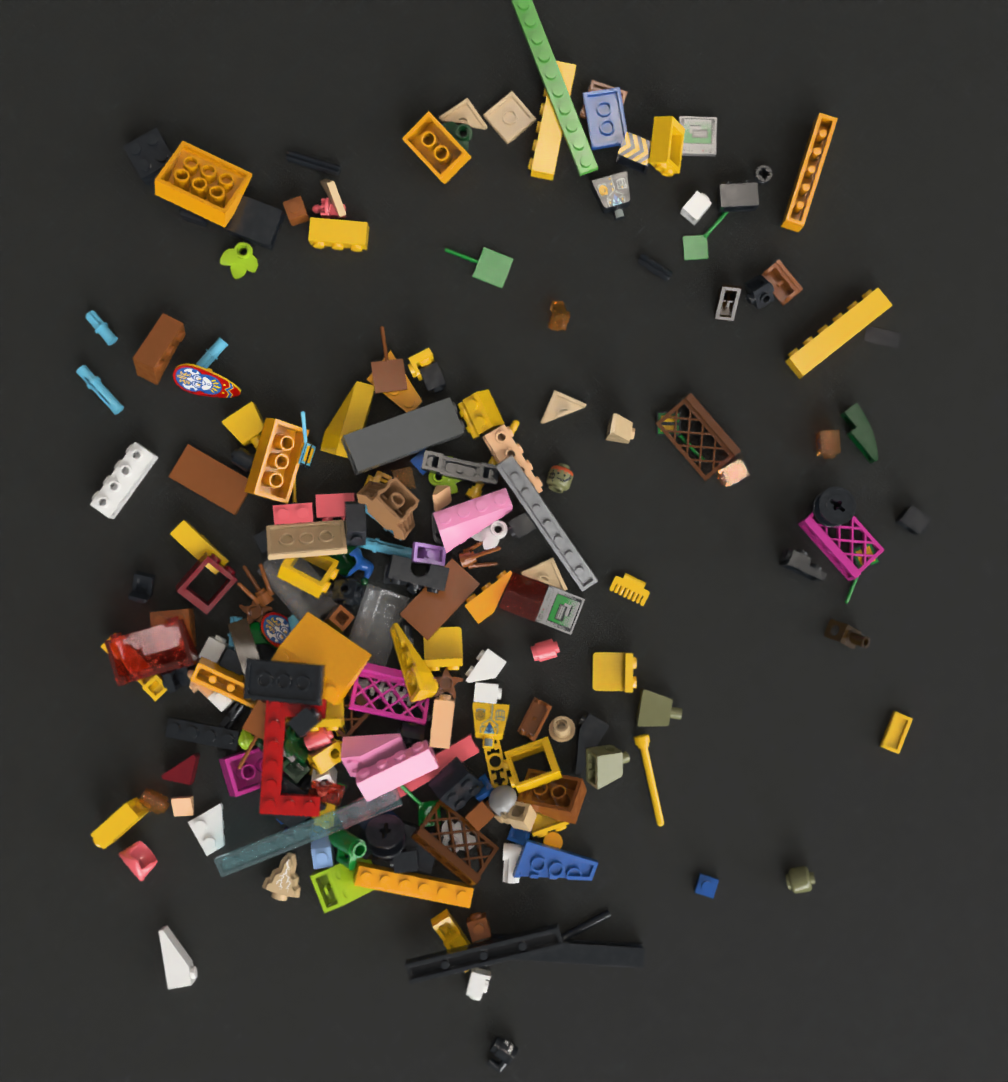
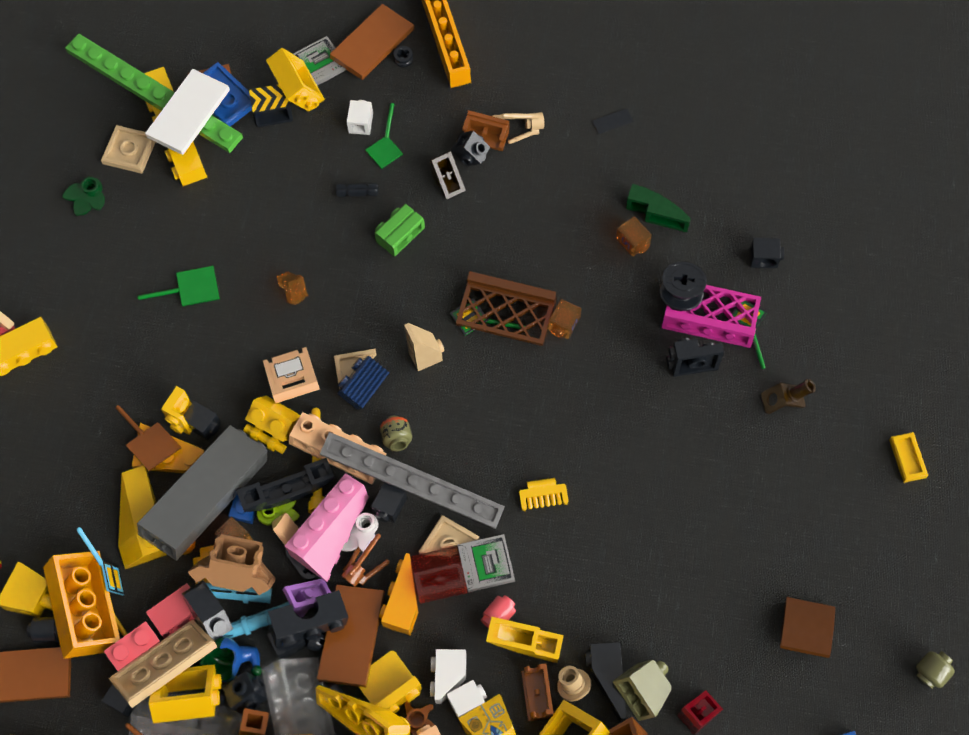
camera: 30 degrees left, 20 degrees down
(436, 147) = (71, 211): light orange brick -> none
(464, 114) = (81, 169): tan tile -> none
(515, 380) = (289, 369): none -> light nougat container
(549, 680) = (525, 639): none -> yellow slope
(560, 425) = (362, 382): none -> dark blue brick
(569, 122) = (187, 111): none -> white tile
(612, 194) = (272, 152): torso -> none
(614, 671) = (586, 586): yellow bracket -> none
(630, 801) = (699, 712): none -> dark red slope
(642, 742) = (668, 641): yellow piece -> none
(655, 709) = (656, 595): olive torso -> none
(663, 322) = (399, 229): none -> bright green brick
(737, 196) = (392, 85): brick -> none
(739, 796) = (807, 627): none -> reddish brown slope
(748, 146) = (372, 41): none -> dark orange tile
(822, 297) = (533, 121): none -> tan plant
(838, 333) = (569, 141): yellow brick -> none

